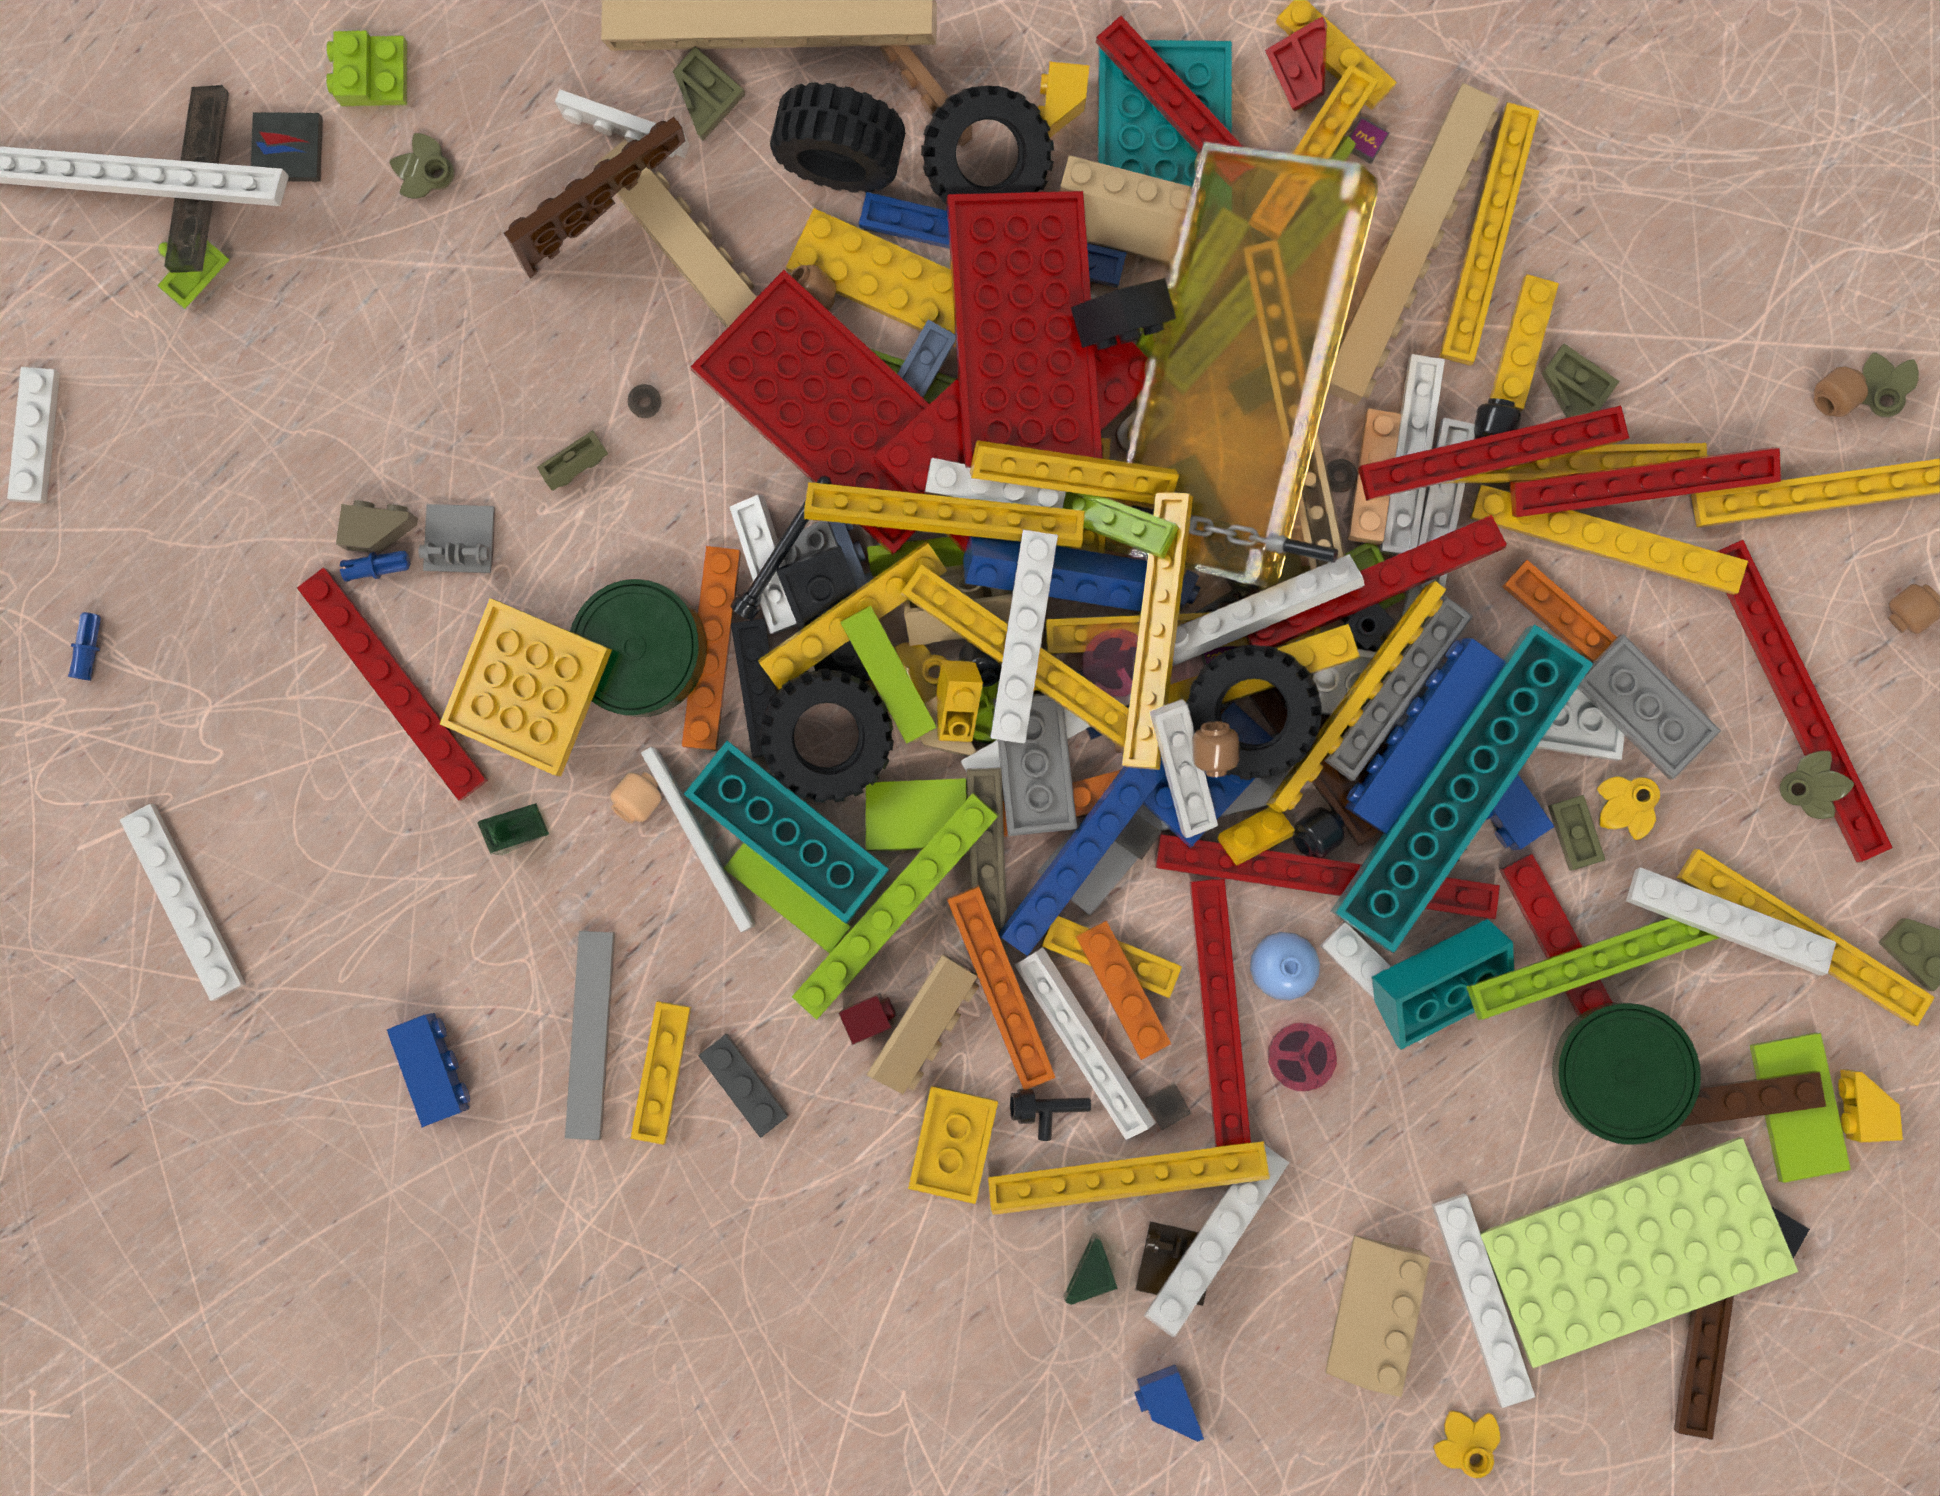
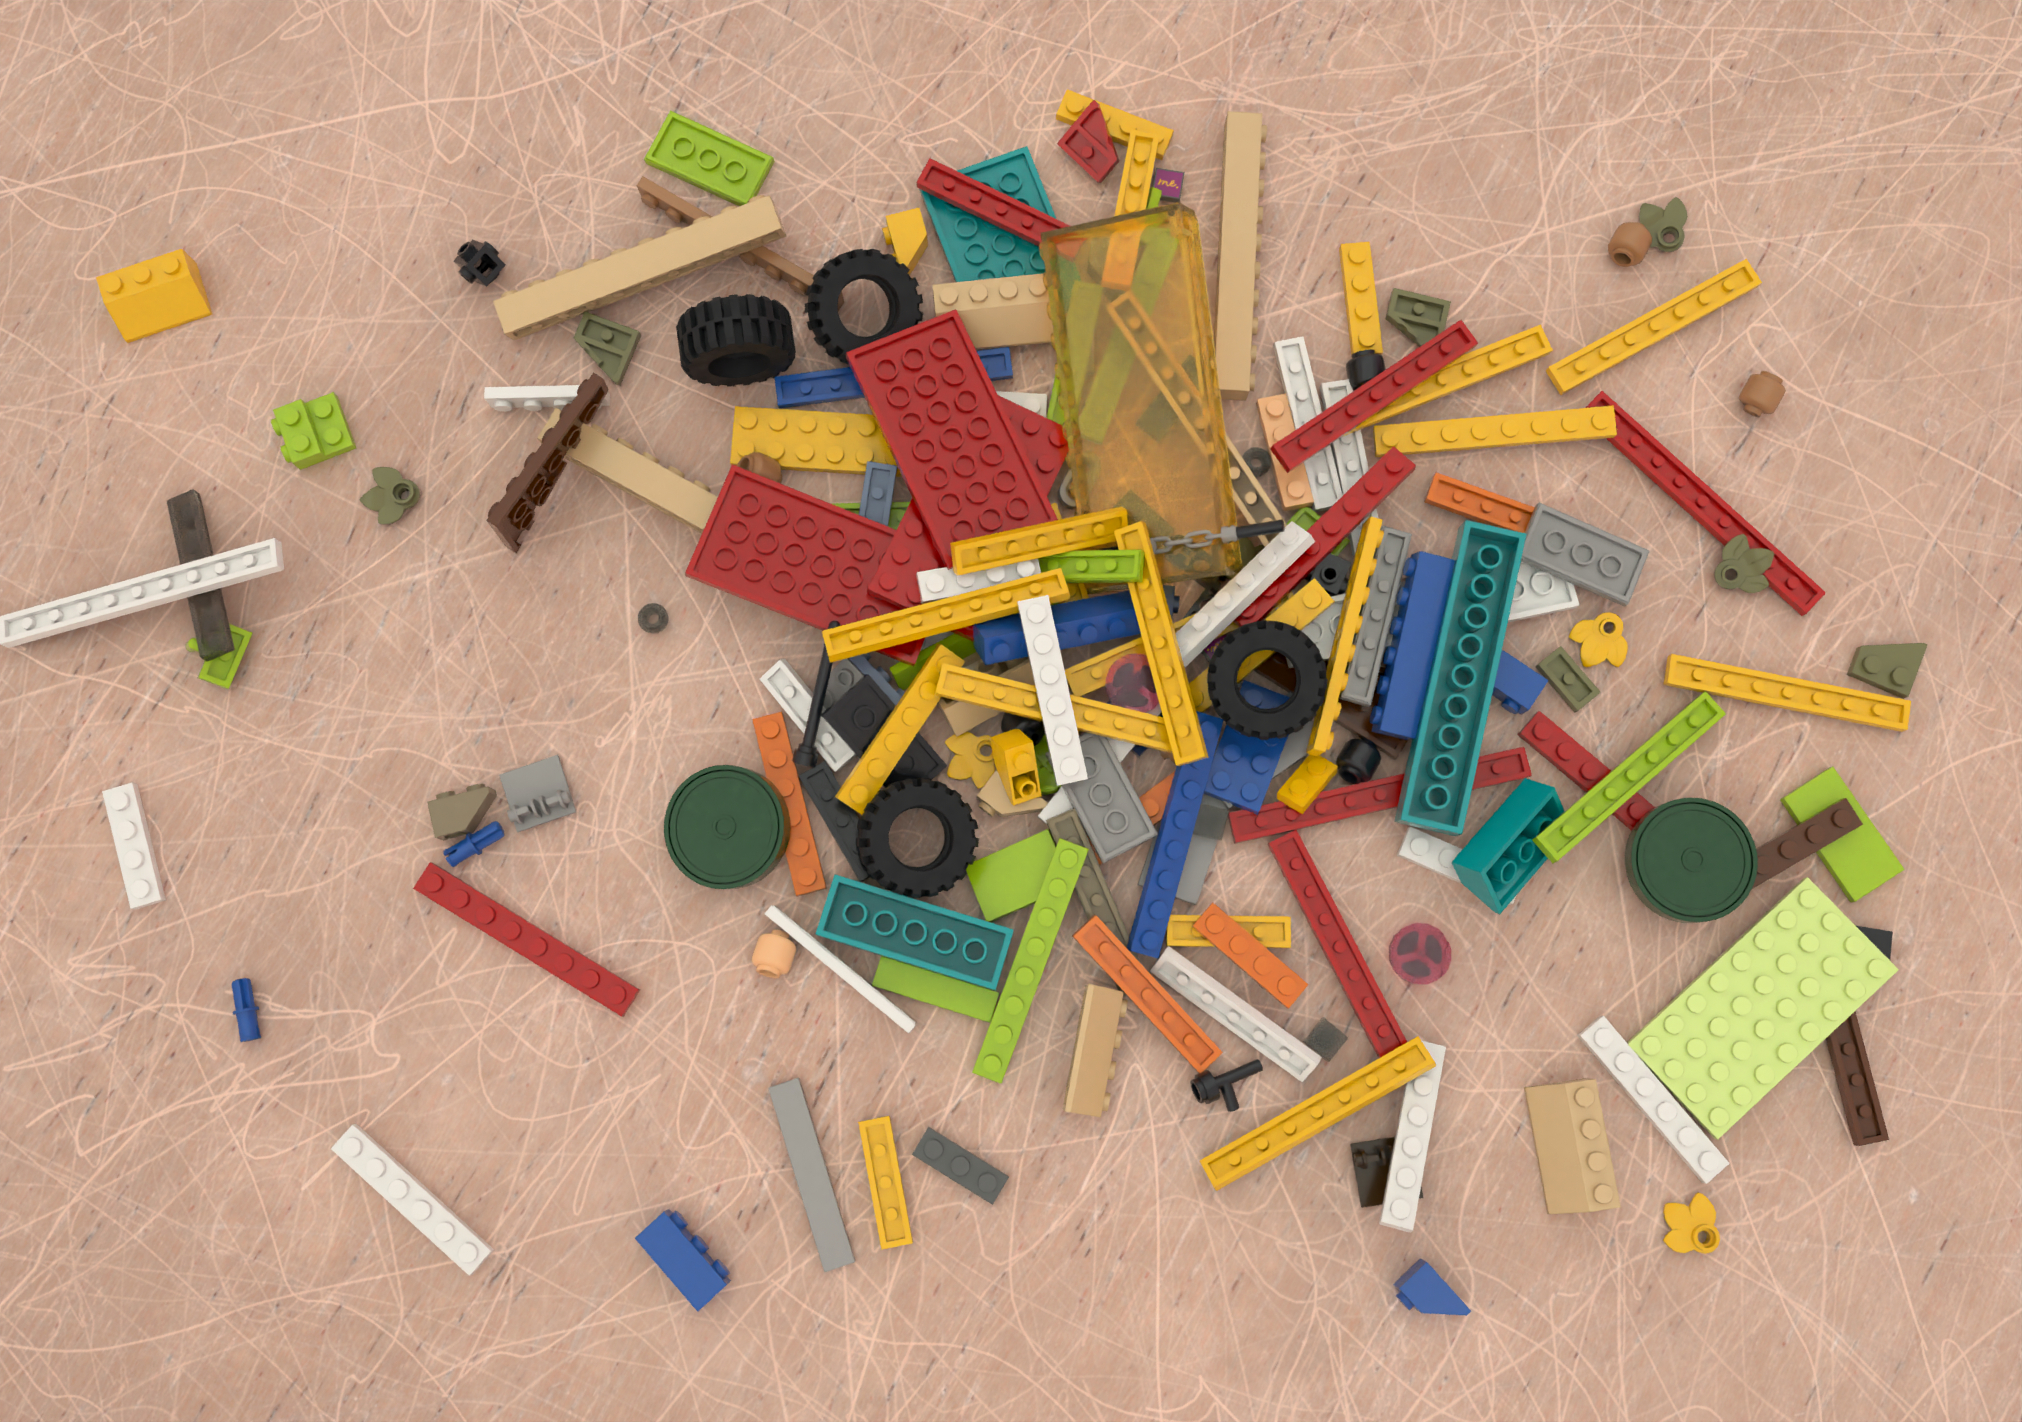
camera: 25 degrees left, 5 degrees down
(288, 143) = (267, 516): pearl dark grey tile -> none
(513, 829) = (679, 1022): clear green slope -> none
(525, 687) = (644, 896): yellow plate -> none
(572, 460) = (611, 690): olive plate -> none
(868, 1017) = (1045, 1063): dark red brick -> none
(888, 674) = (950, 766): lime tile -> none
(953, 1144) = (1158, 1144): yellow plate -> none
(1092, 1274) = (1320, 1208): clear green slope -> none
(1124, 314) = (1030, 396): black brick -> none
(1186, 781) = (1228, 748): white plate -> none
(1215, 748) = (1249, 720): medium nougat head -> none
(1285, 966) = (1375, 883): light blue cylinder -> none
(1489, 234) = (1297, 224): yellow plate -> none
(1645, 482) = (1505, 373): red plate -> none
(1731, 921) = (1723, 702): white plate -> none
(1868, 1110) = (1897, 814): yellow slope -> none

